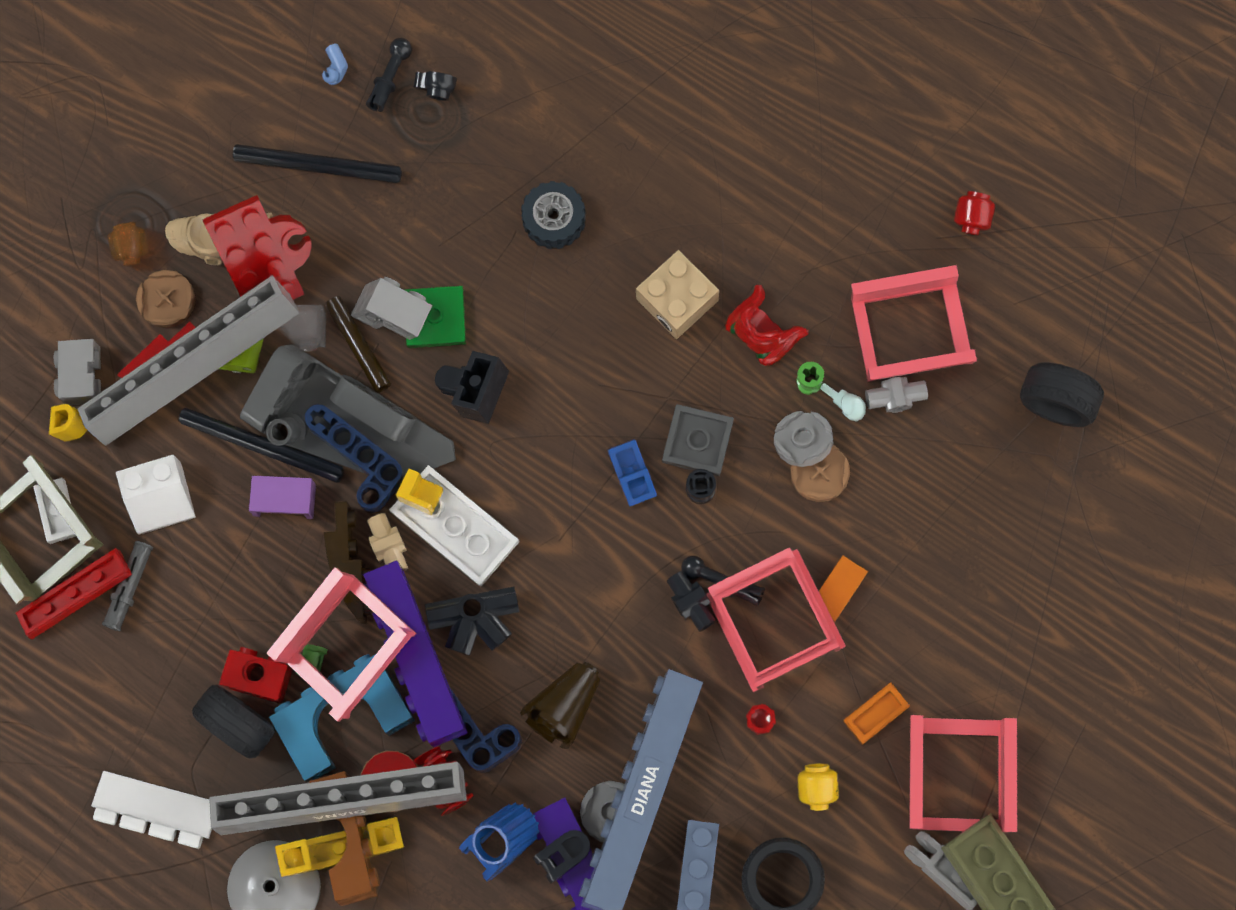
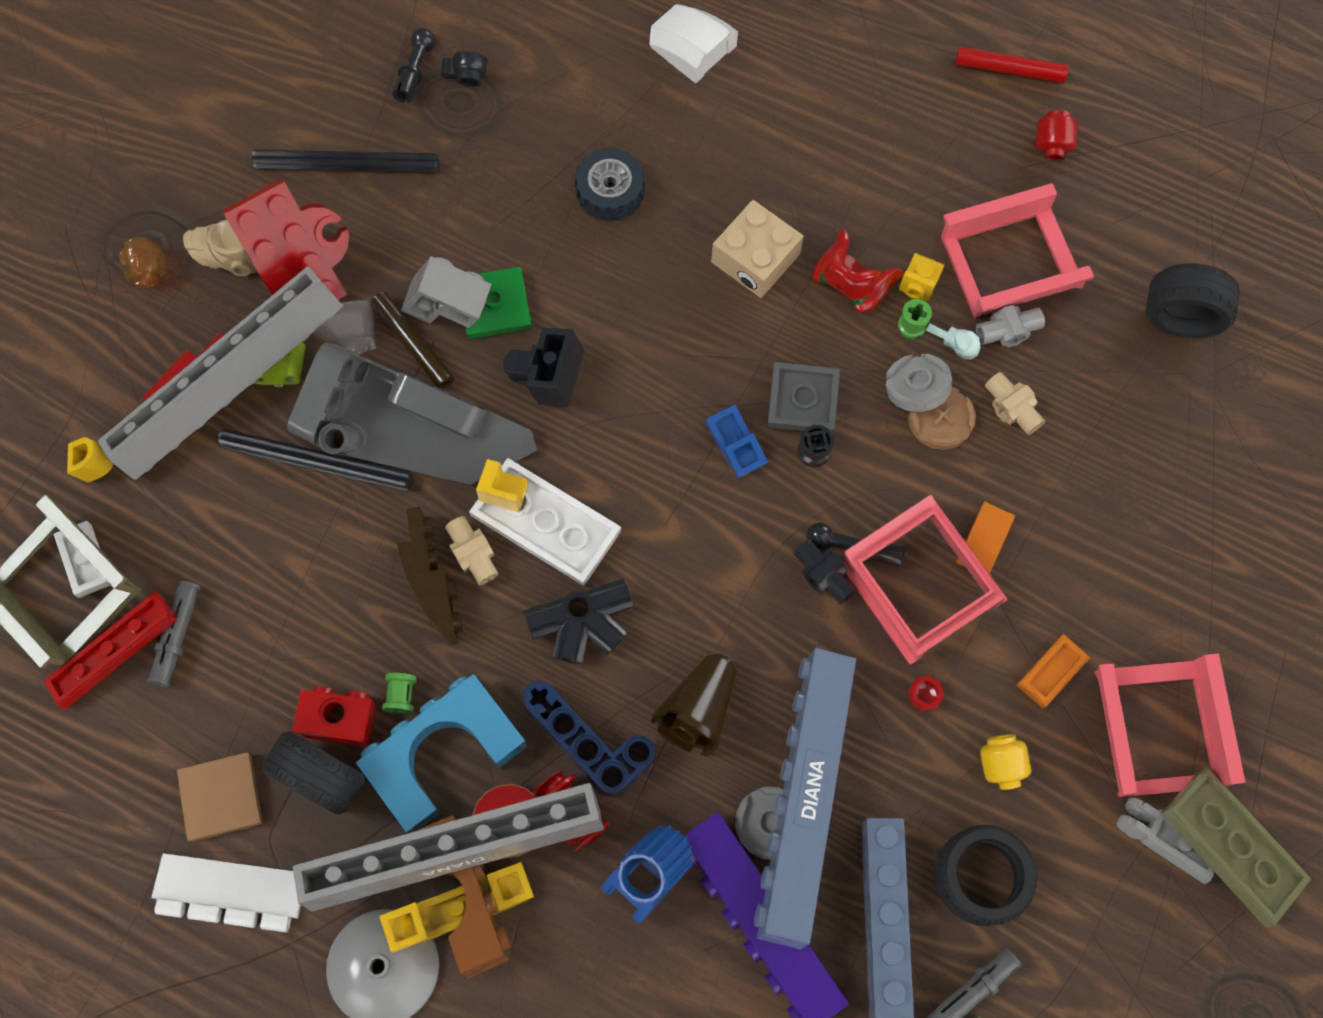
camera: 15 degrees left, 5 degrees down
(76, 371) = (94, 400): light grey brick -> none
(153, 729) = (219, 797): none -> medium nougat tile
(156, 494) = (198, 526): white slope -> none
(165, 299) = (191, 317): medium nougat tile -> none
(282, 496) = (344, 510): medium lavender panel -> none
(312, 617) = (394, 639): piece -> none
(338, 65) = (358, 62): medium blue arm -> none
(351, 452) = (418, 452): dark blue beam -> none
(417, 660) = (521, 667): dark purple brick -> none
(572, 846) = (738, 869): black plate -> none
(649, 76) = (692, 40): none -> white slope
(824, 338) = (921, 277): none -> yellow bracket
(886, 468) = (1014, 403): none -> tan axle
(947, 135) = (1011, 64): none -> red piece

